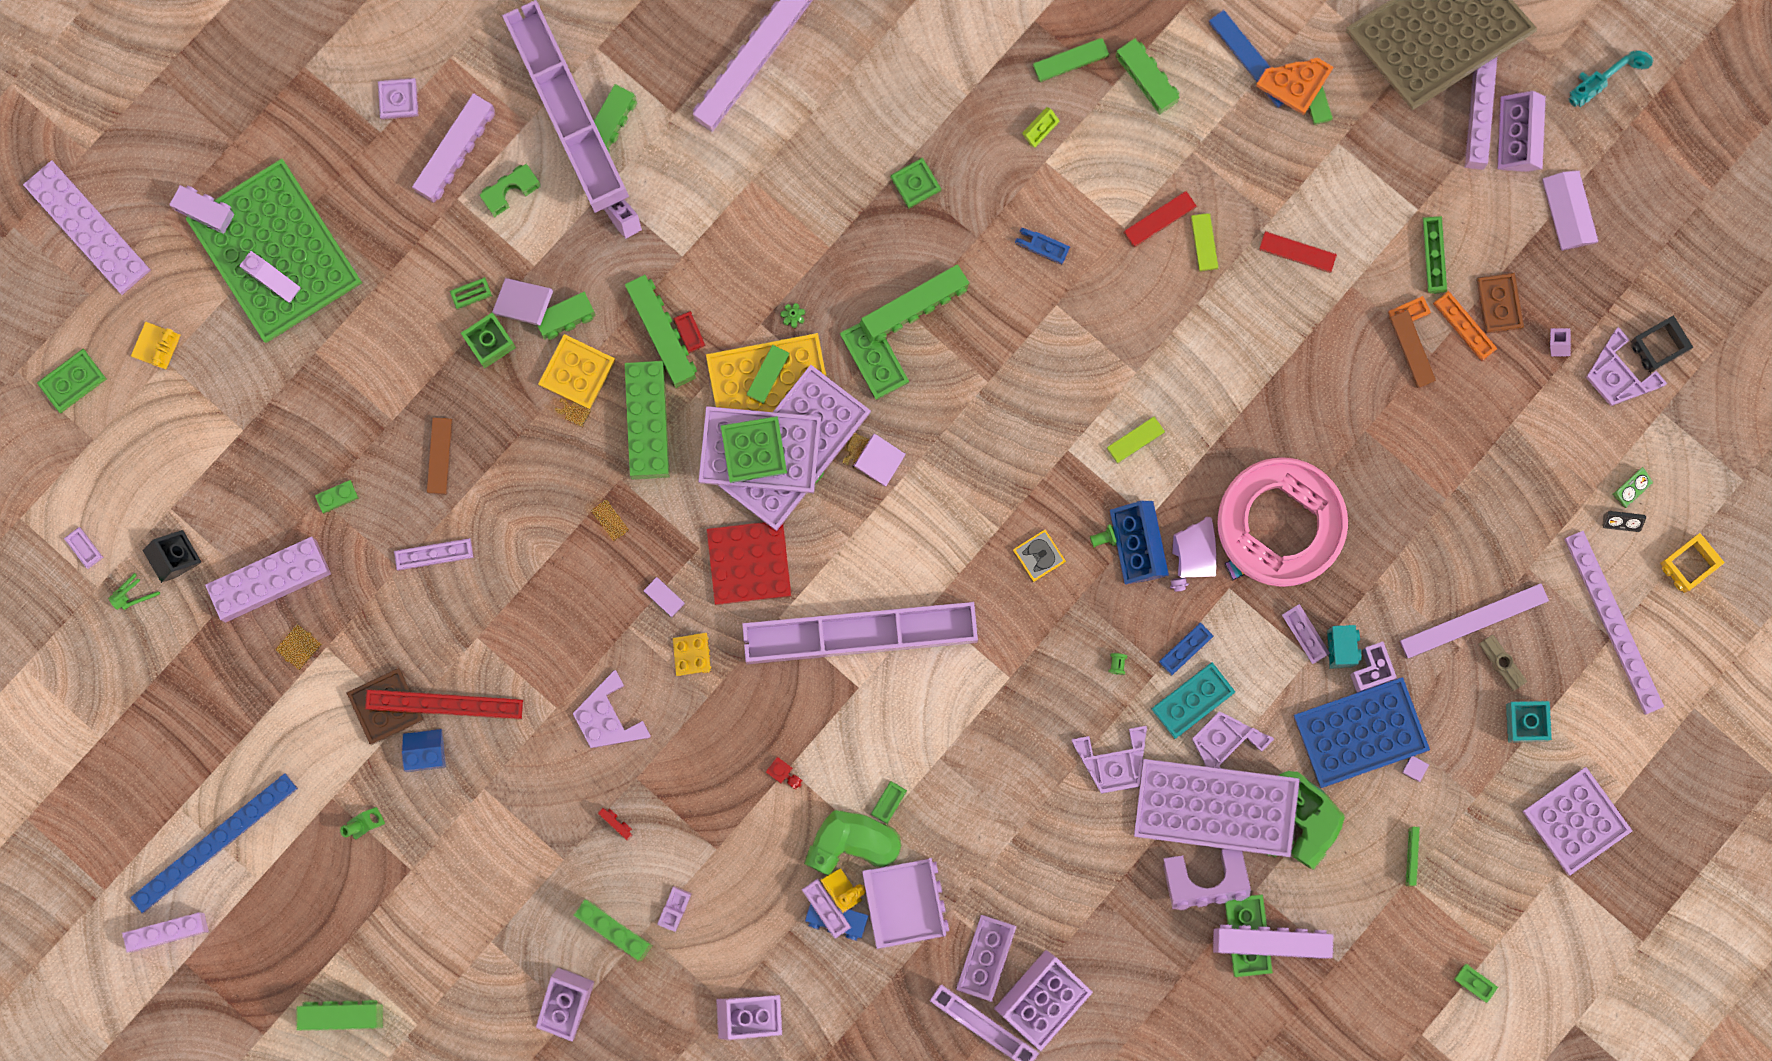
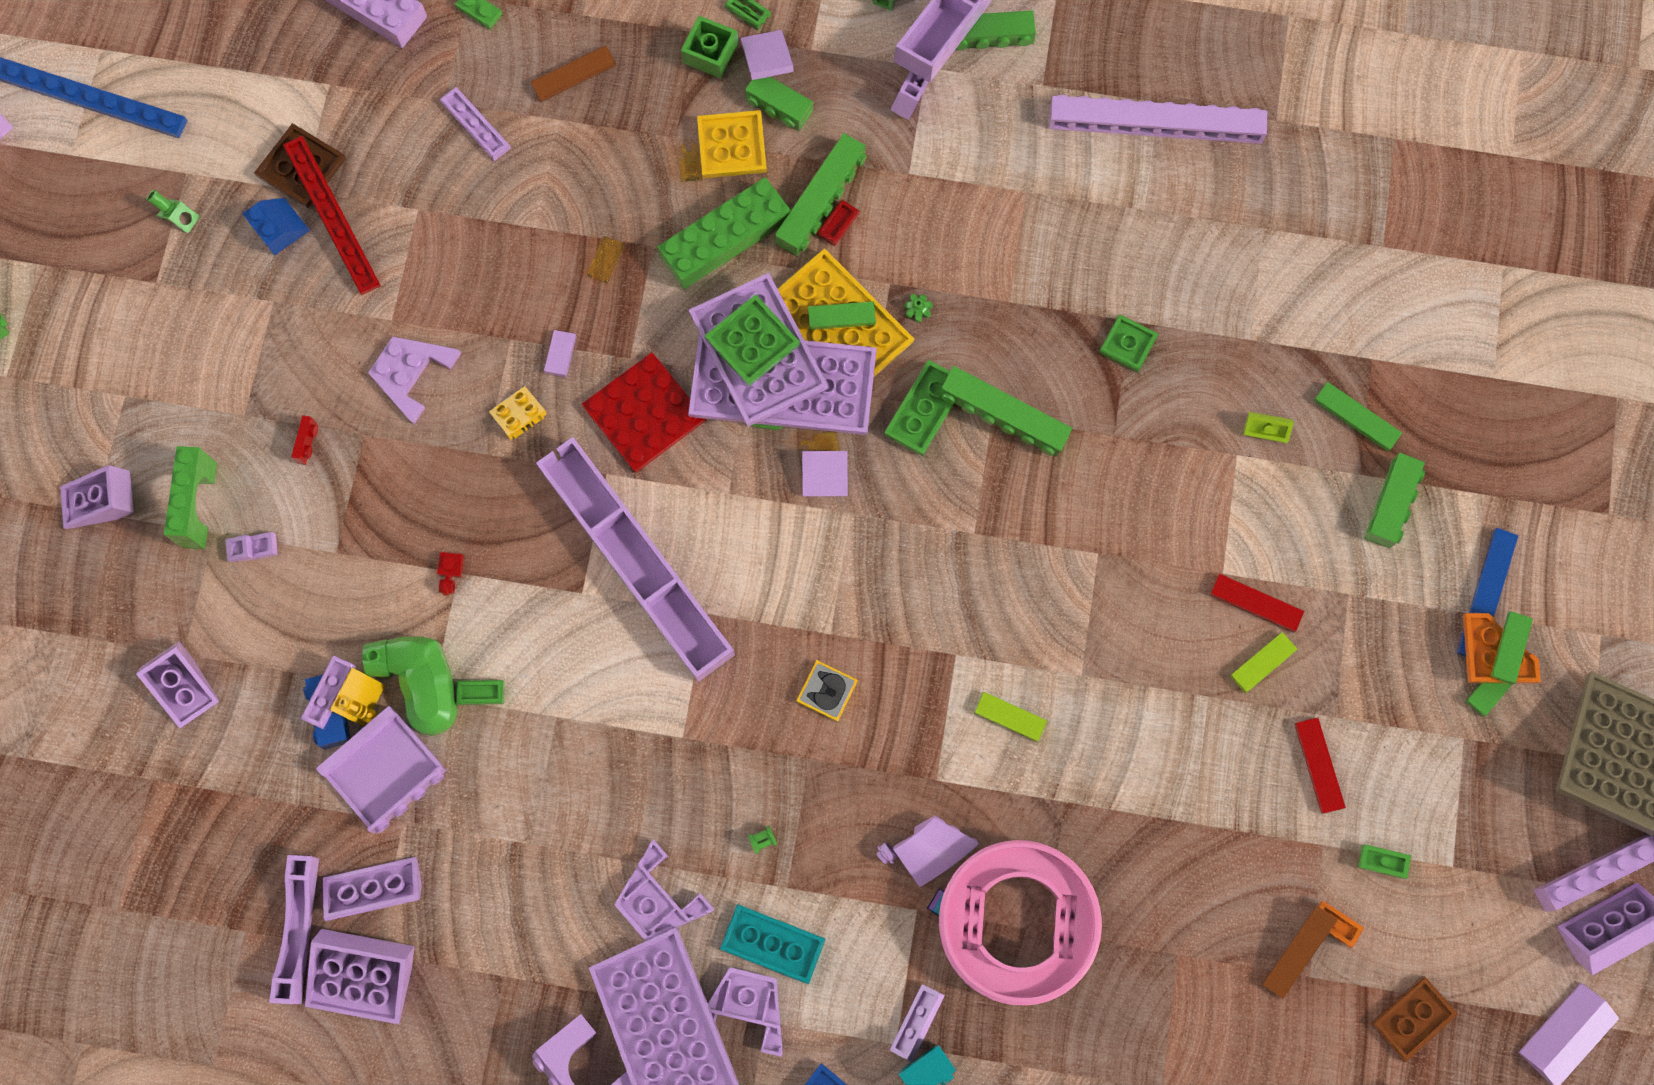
camera: 60 degrees right, 5 degrees down
(298, 647) = (315, 60): clear yellow piece -> none
(1044, 246) = (1149, 504): blue hinge -> none
(1104, 537) = (893, 750): bright green bracket -> none
(1139, 542) = (904, 784): blue slope -> none
(1186, 649) = (823, 903): blue tile -> none
(1299, 70) = (1511, 647): none -> bright green tile
(1387, 252) = (1384, 861): none -> bright green plate
(1435, 255) = (1417, 914): bright green brick -> none
(1465, 326) = (1363, 995): orange tile -> none

